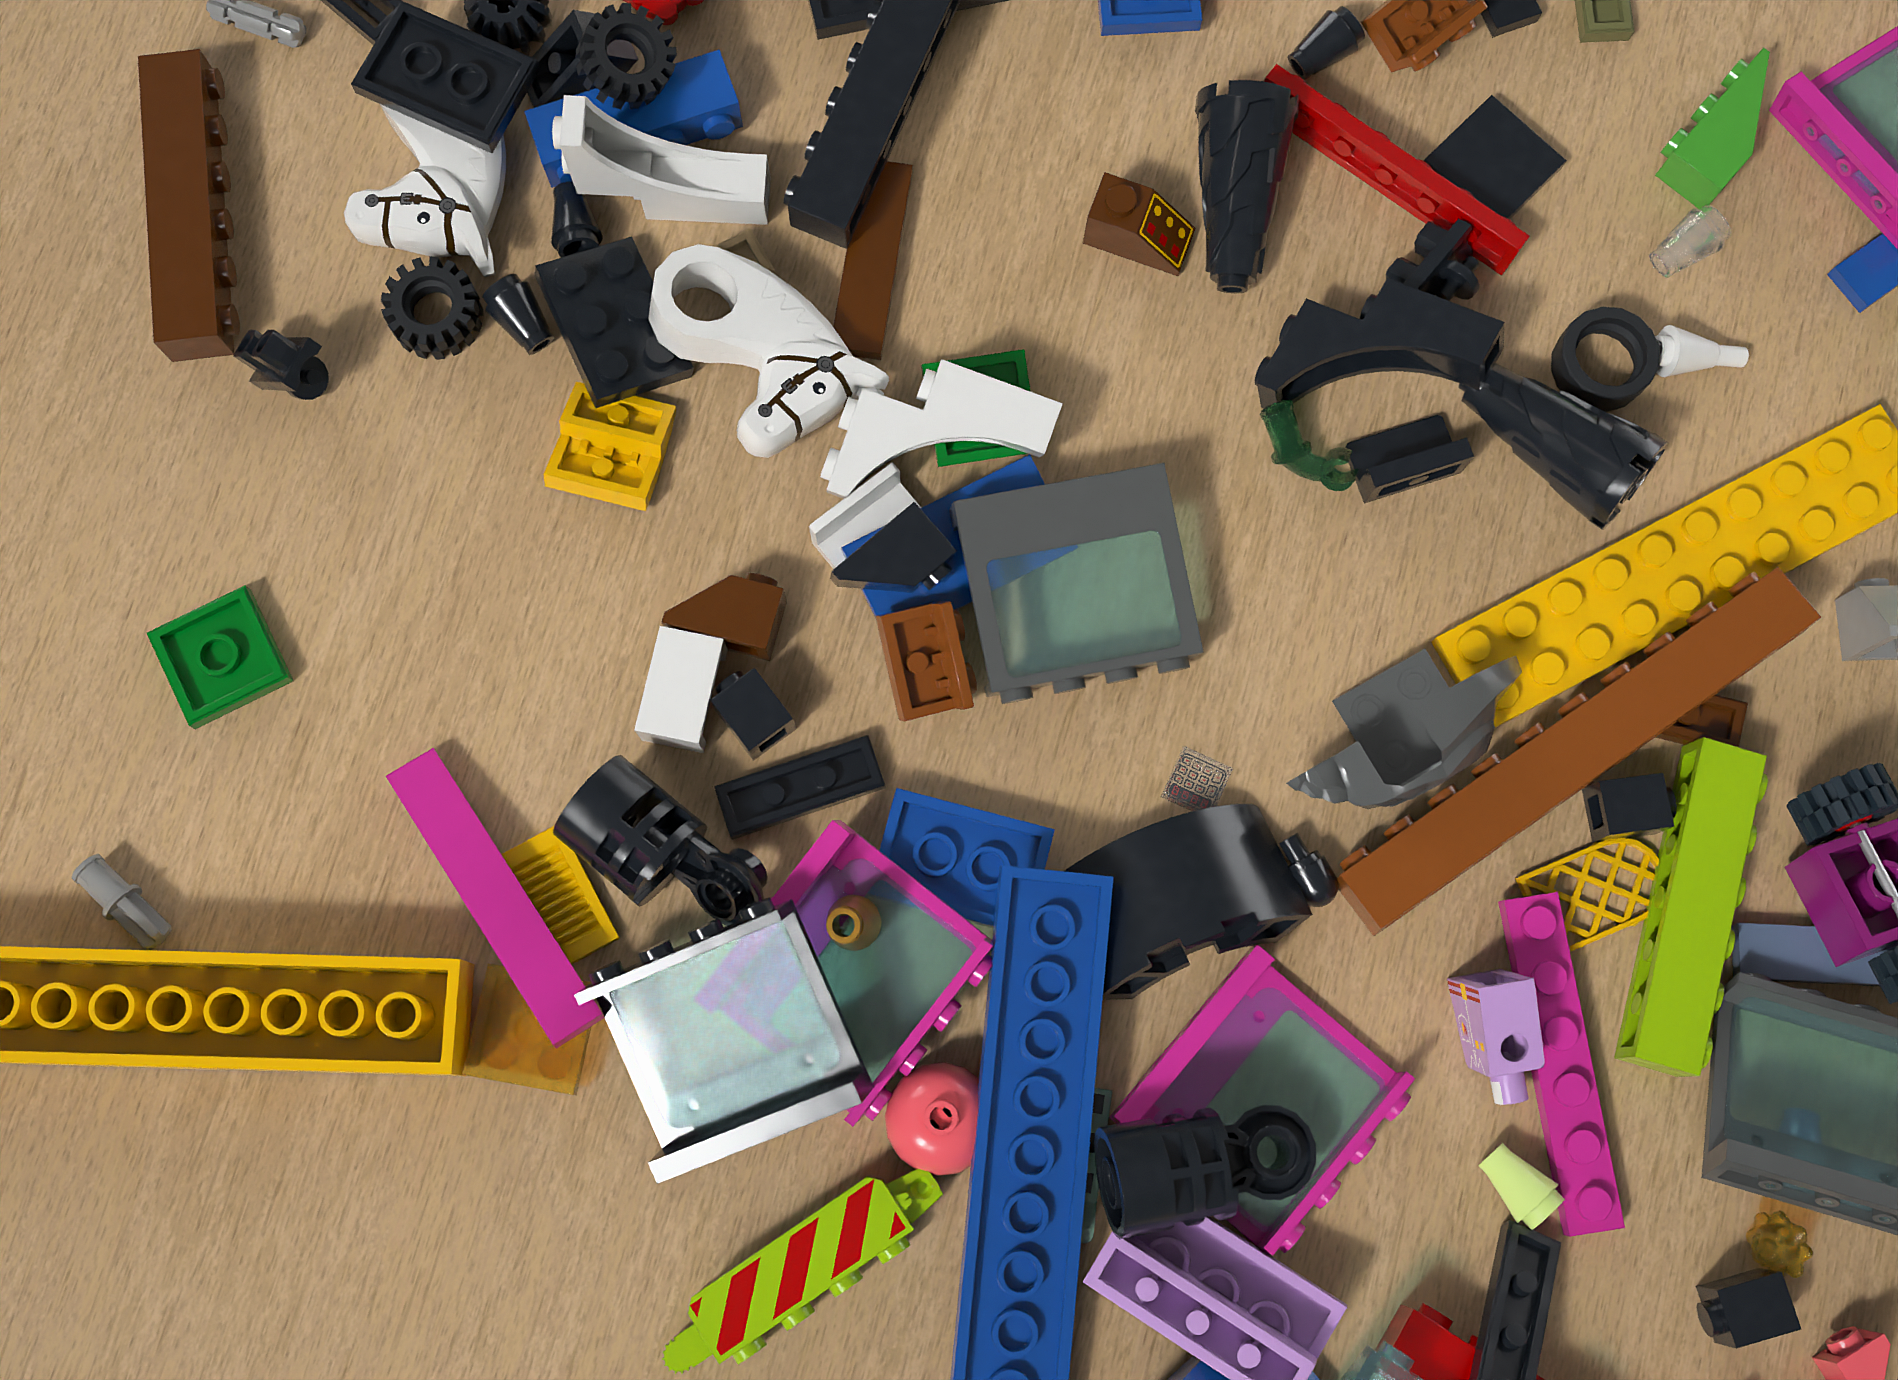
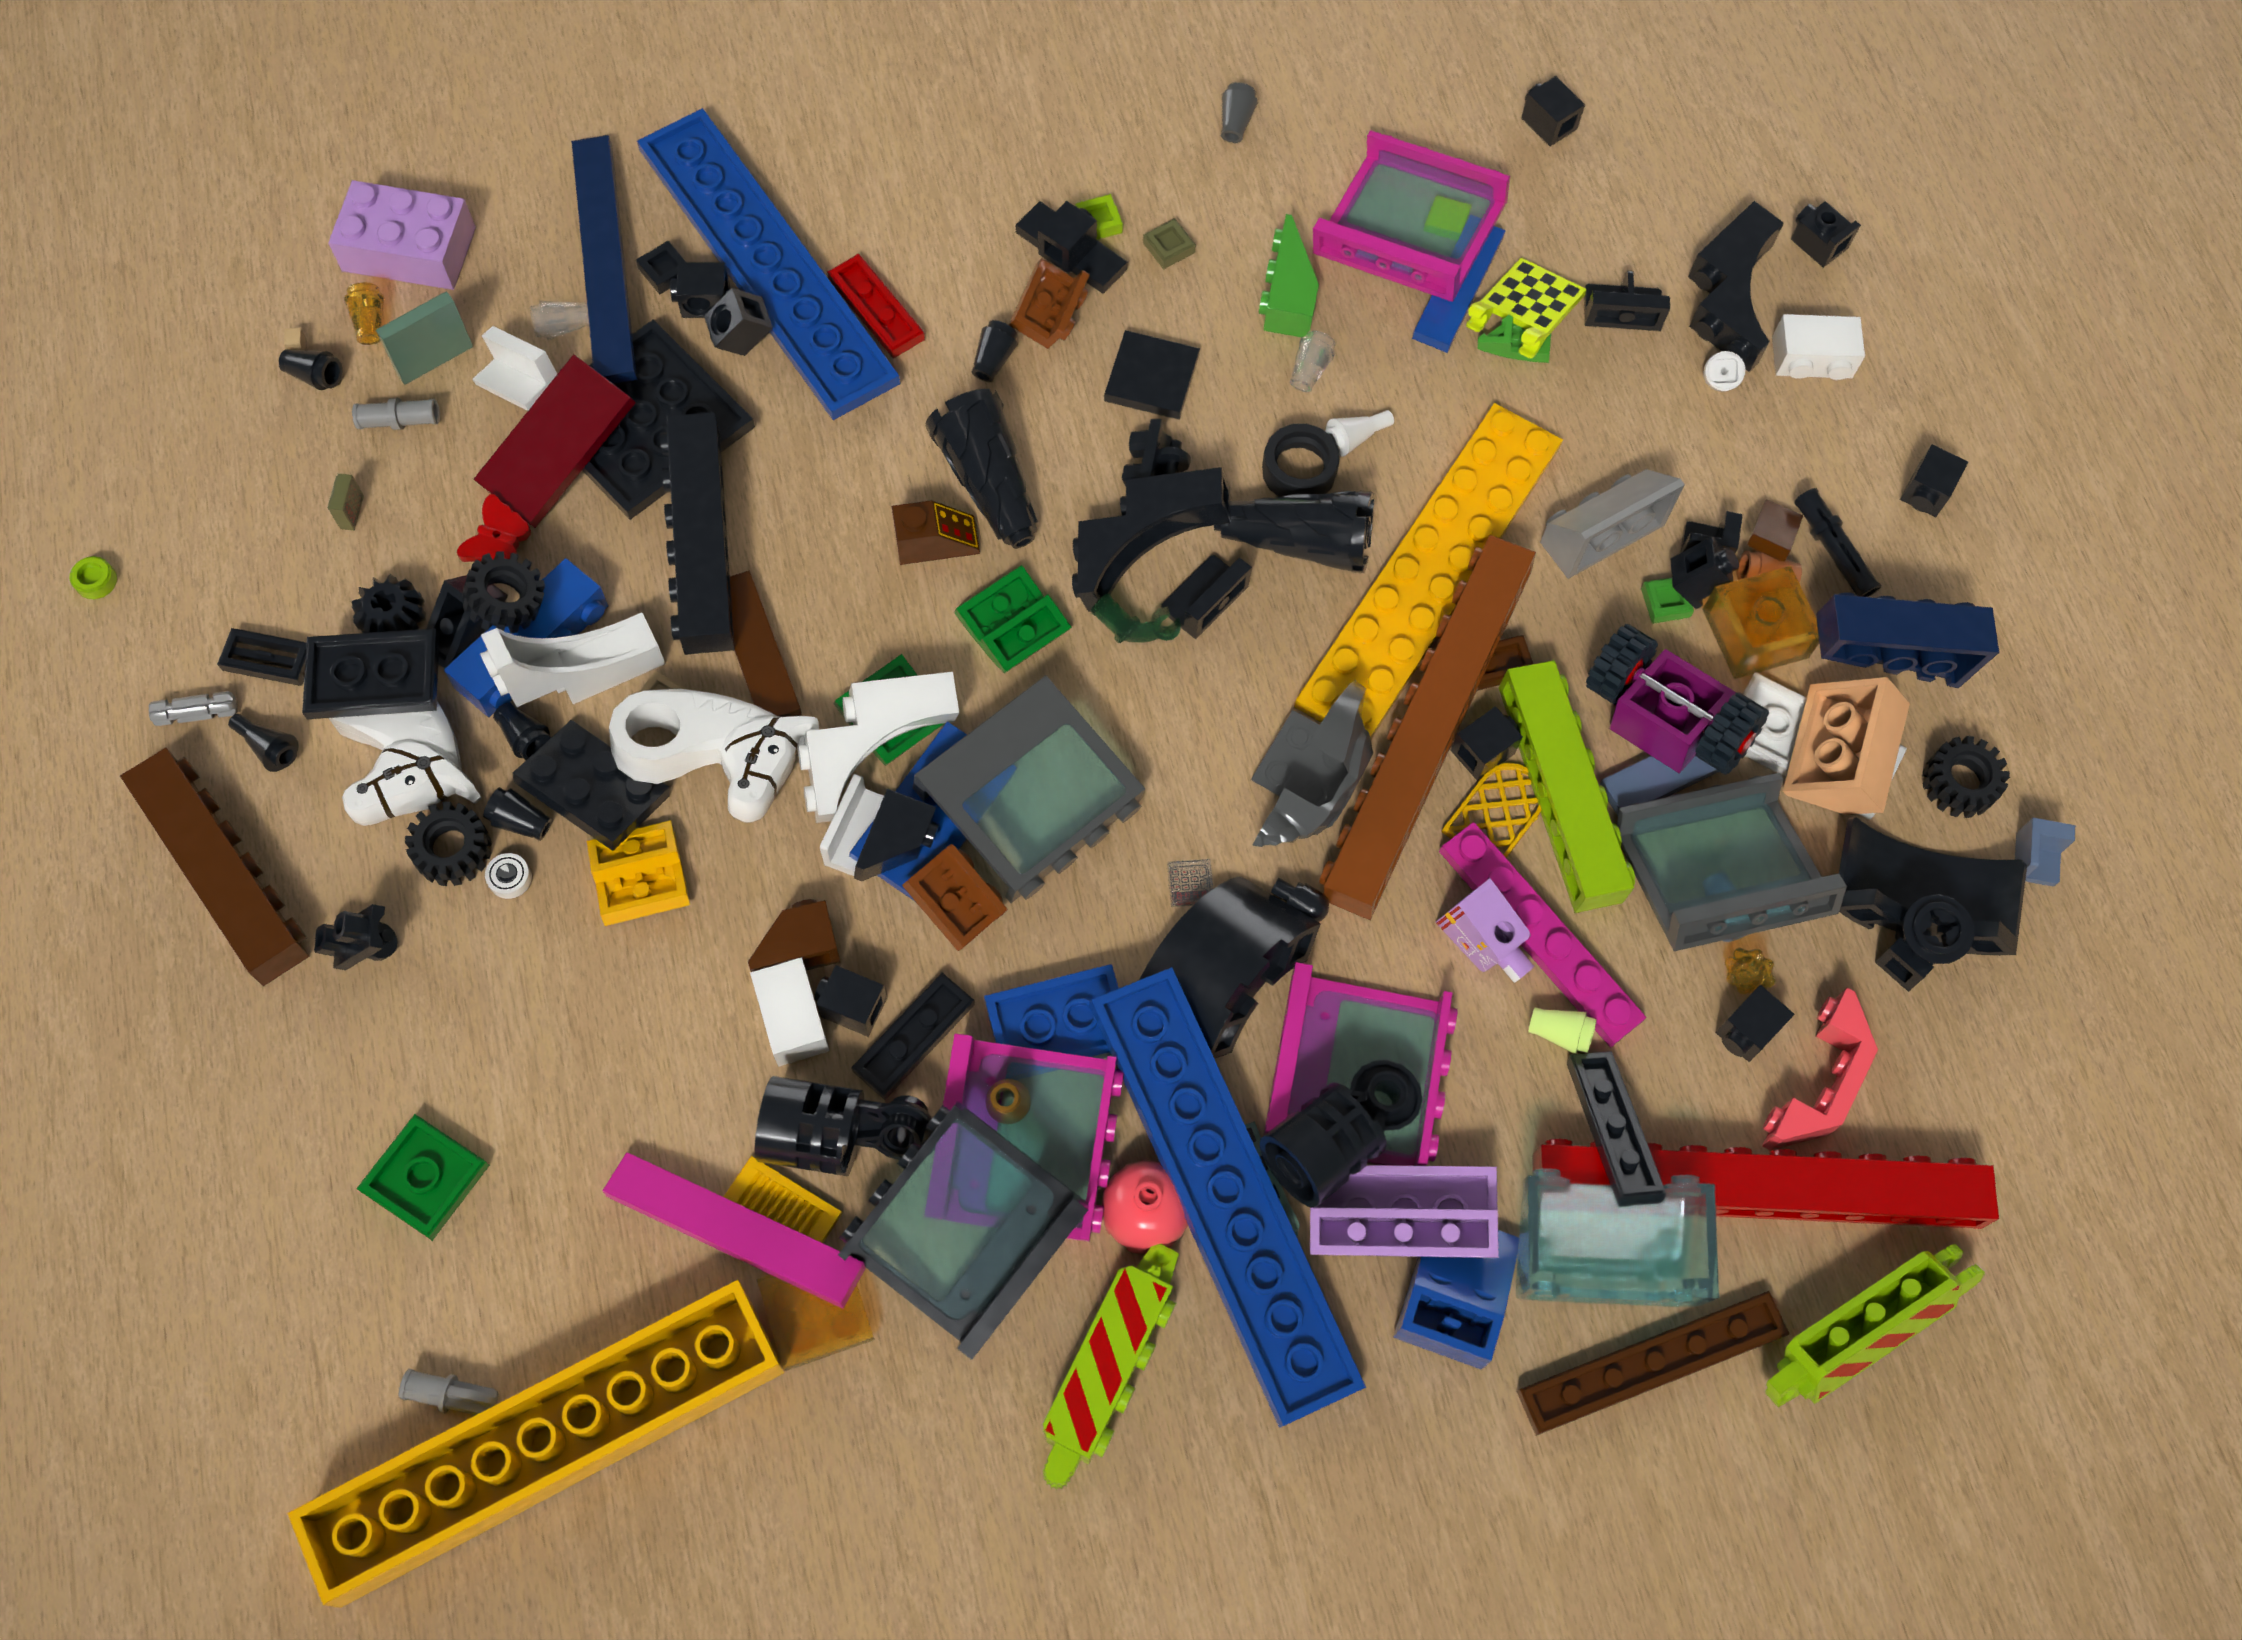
camera: 30 degrees left, 10 degrees down
(310, 103) = (272, 747): none -> black cone
(476, 376) = (508, 875): none -> white tile
(1170, 373) = (1012, 619): none -> green slope
(1398, 174) = (1093, 411): red plate -> none

